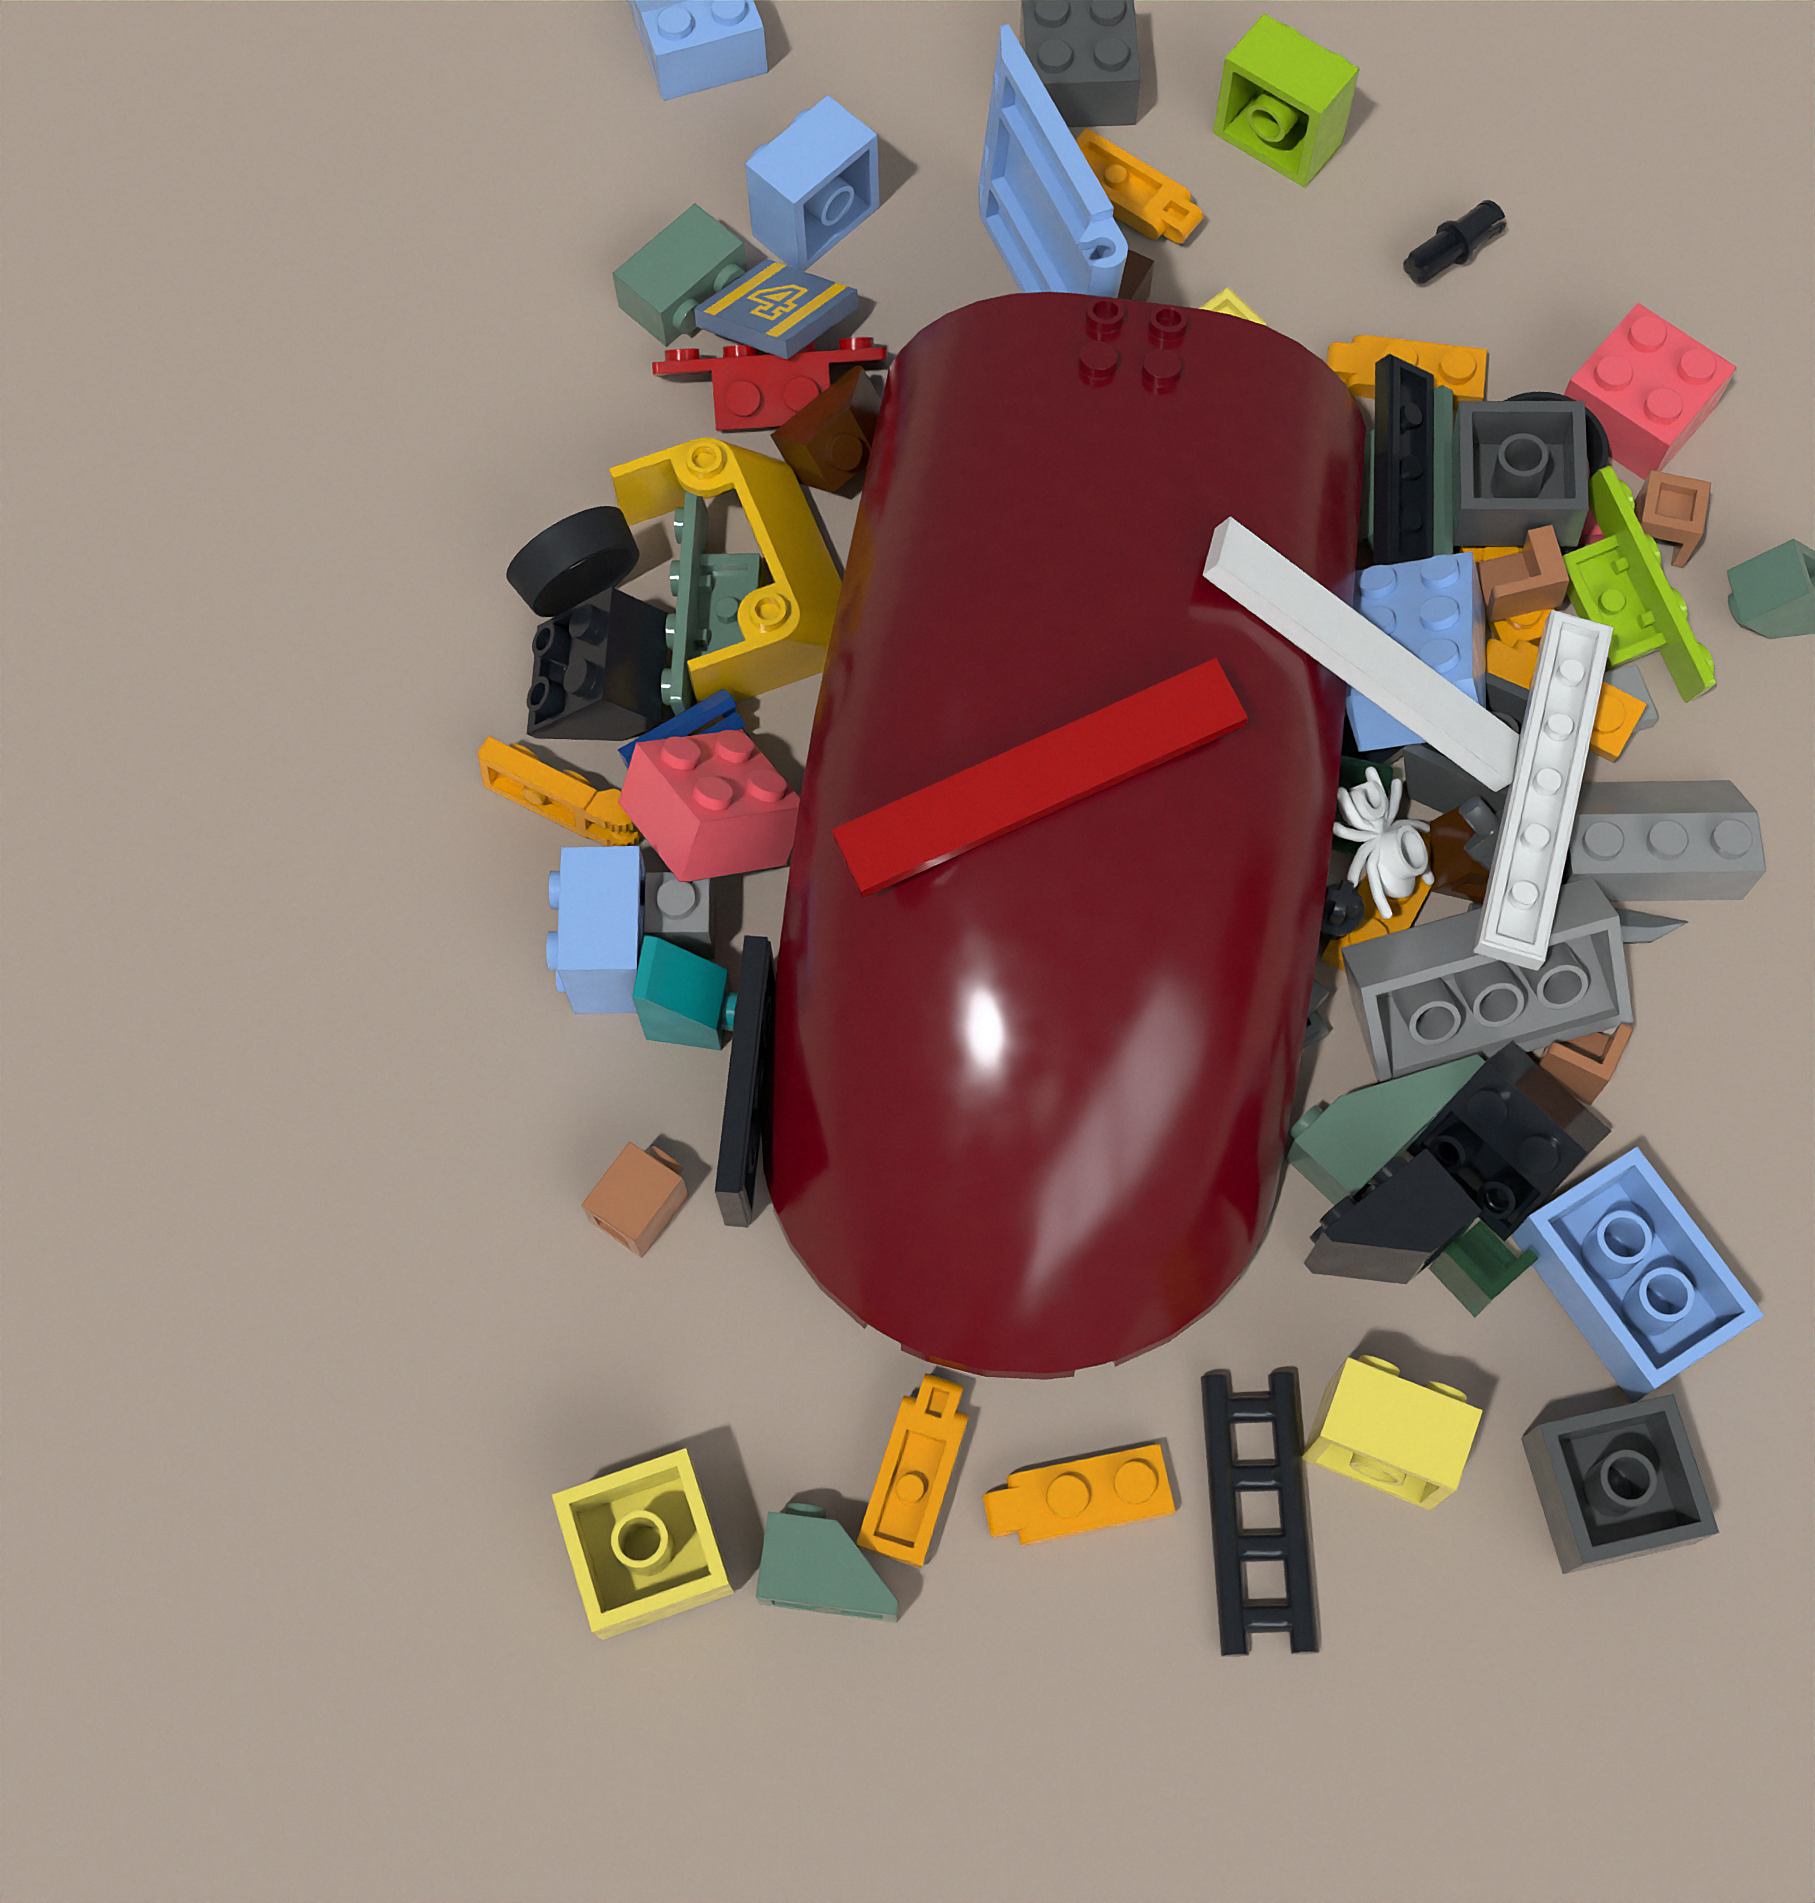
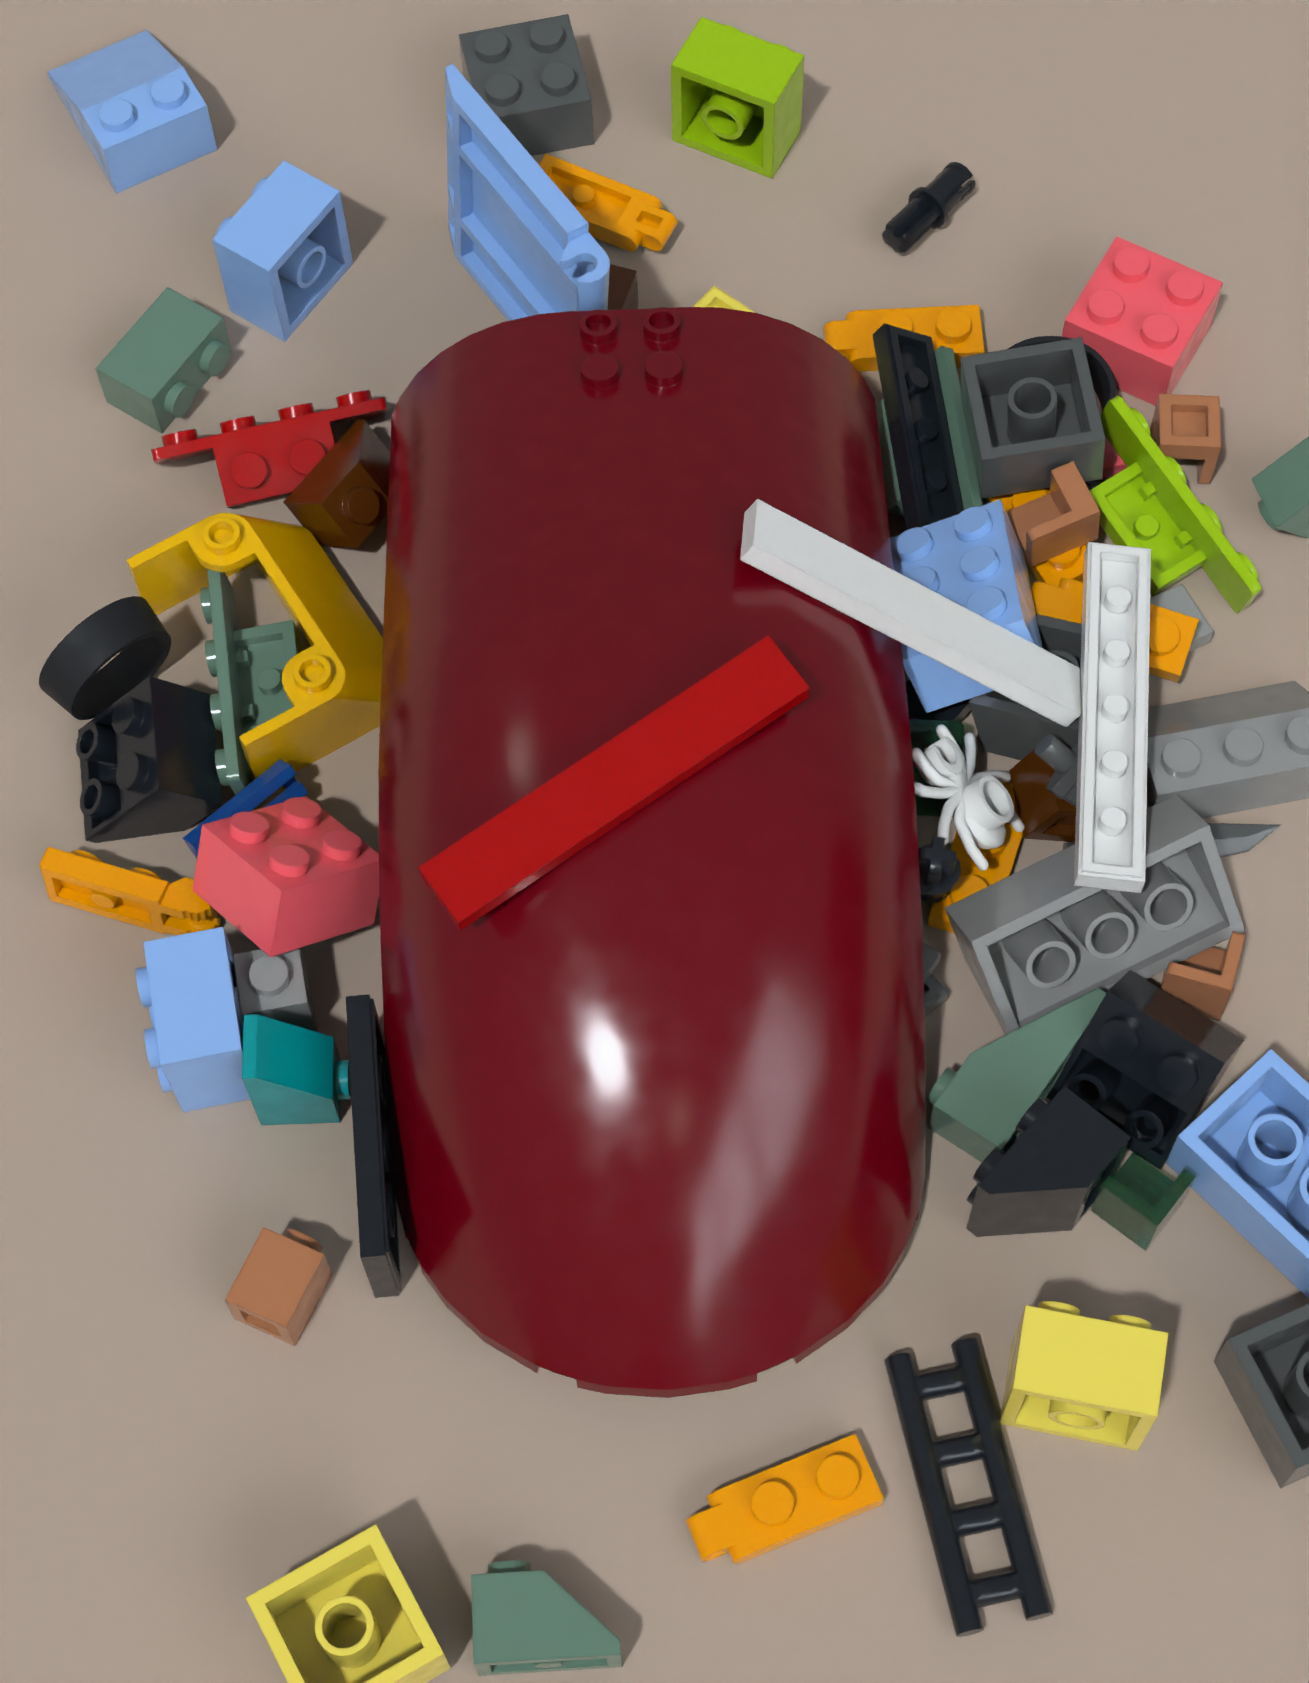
camera: 10 degrees left, 5 degrees down
(776, 308) = (267, 377): sand blue tile -> none
(915, 1473) = (613, 1511): light orange hinge -> none

